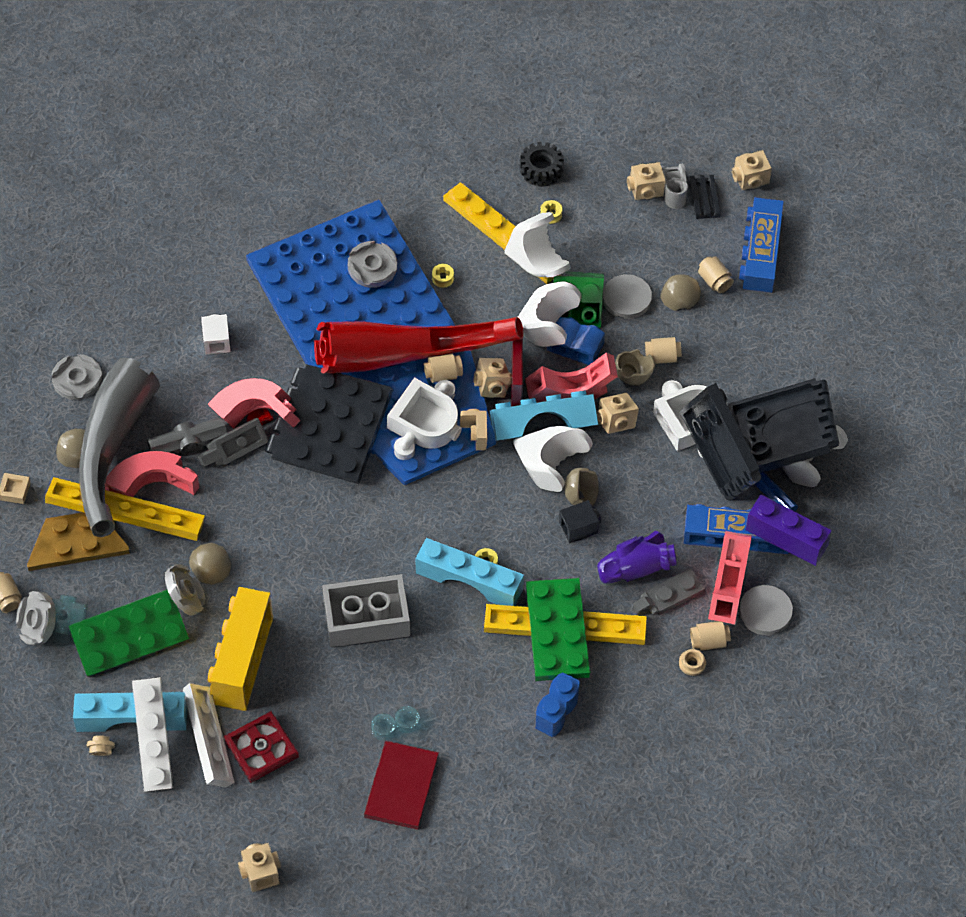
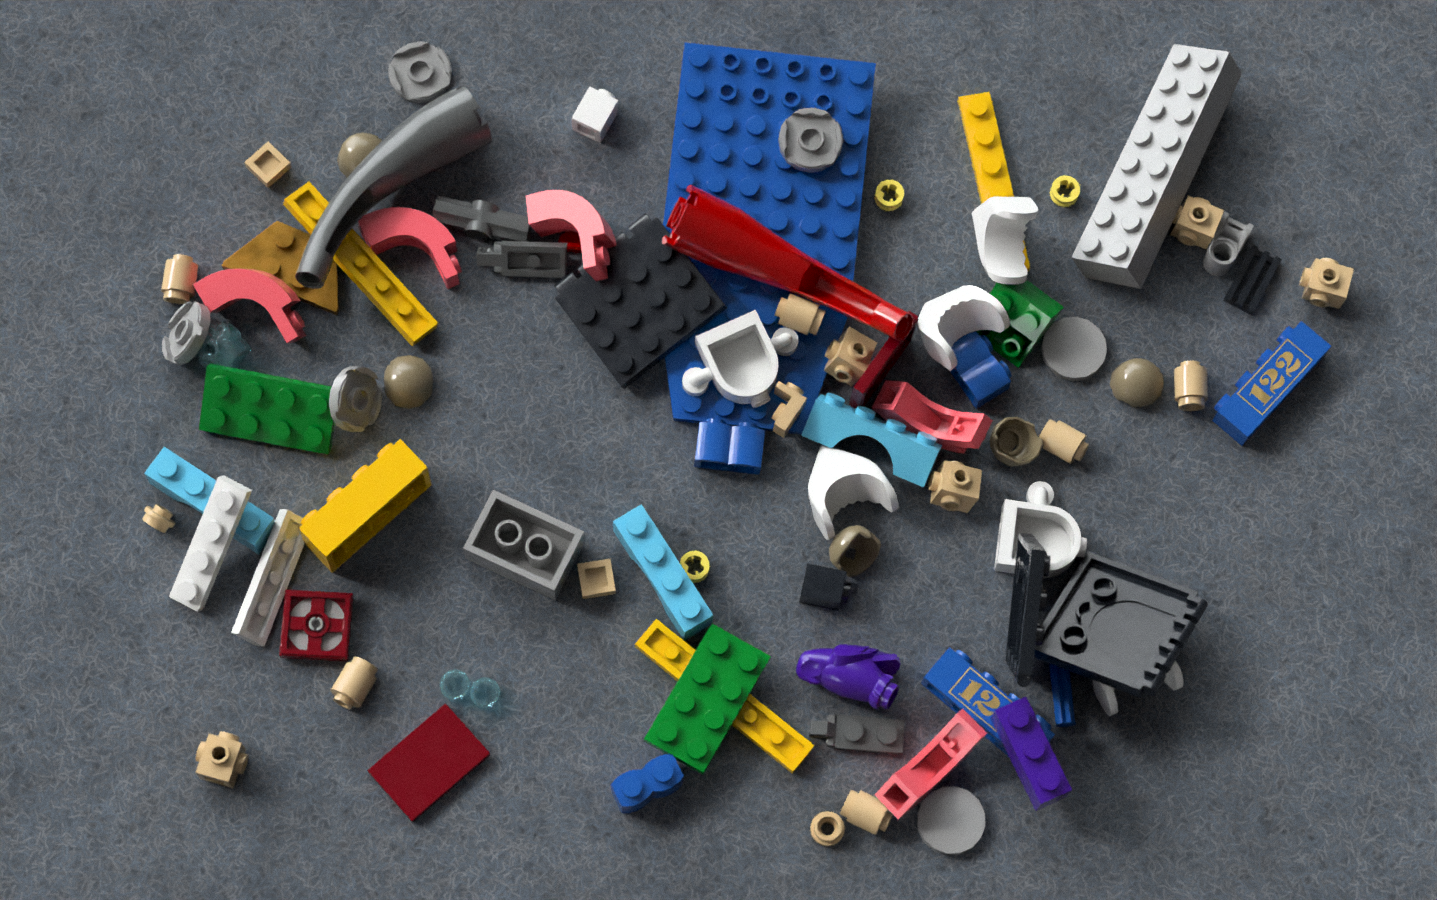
camera: 30 degrees right, 15 degrees up
(65, 560) = (231, 285): none -> coral arch
(314, 765) = (354, 683): none -> tan brick
(428, 605) = (596, 578): none -> tan plate
(454, 476) = (729, 446): none -> blue brick
(541, 175) = (1104, 110): black tyre -> none
(599, 162) = (1157, 166): none -> brick

